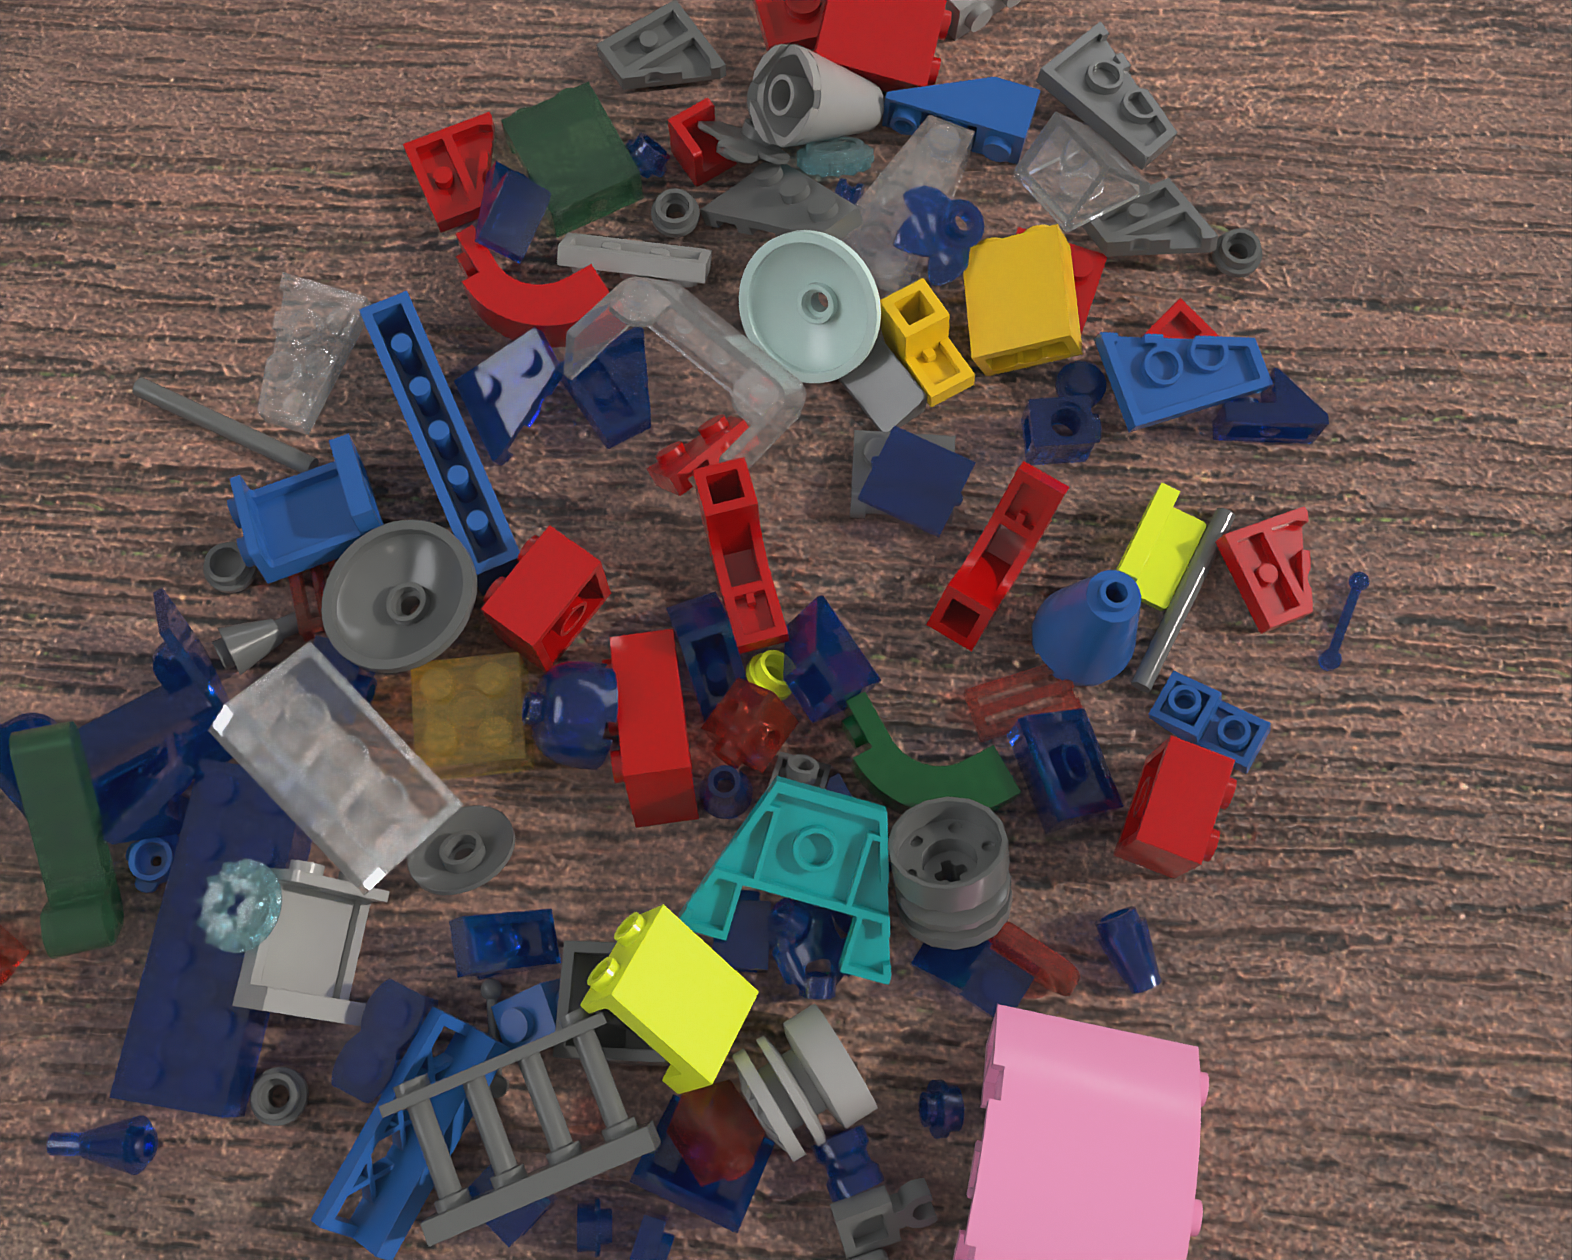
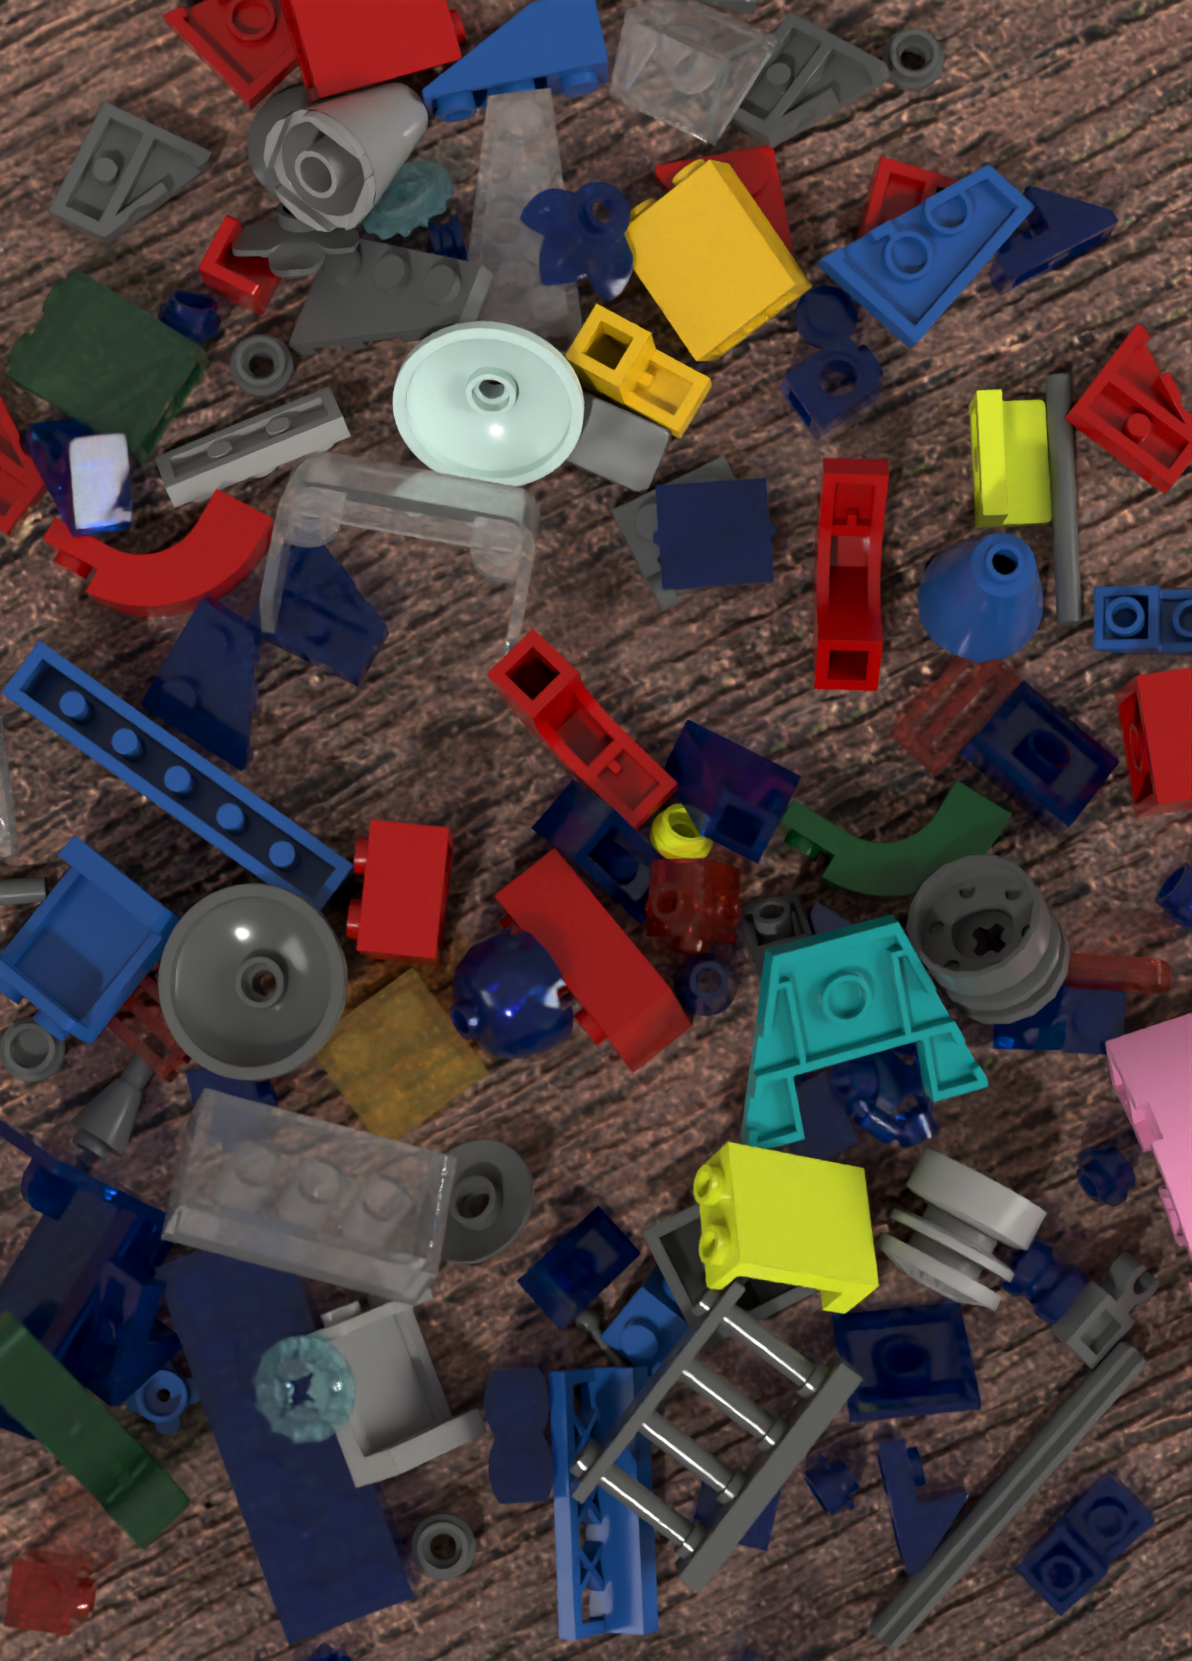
camera: 30 degrees left, 10 degrees up
(678, 460) = (469, 627): red wing -> none
(716, 1132) = (903, 1328): clear red brick -> none

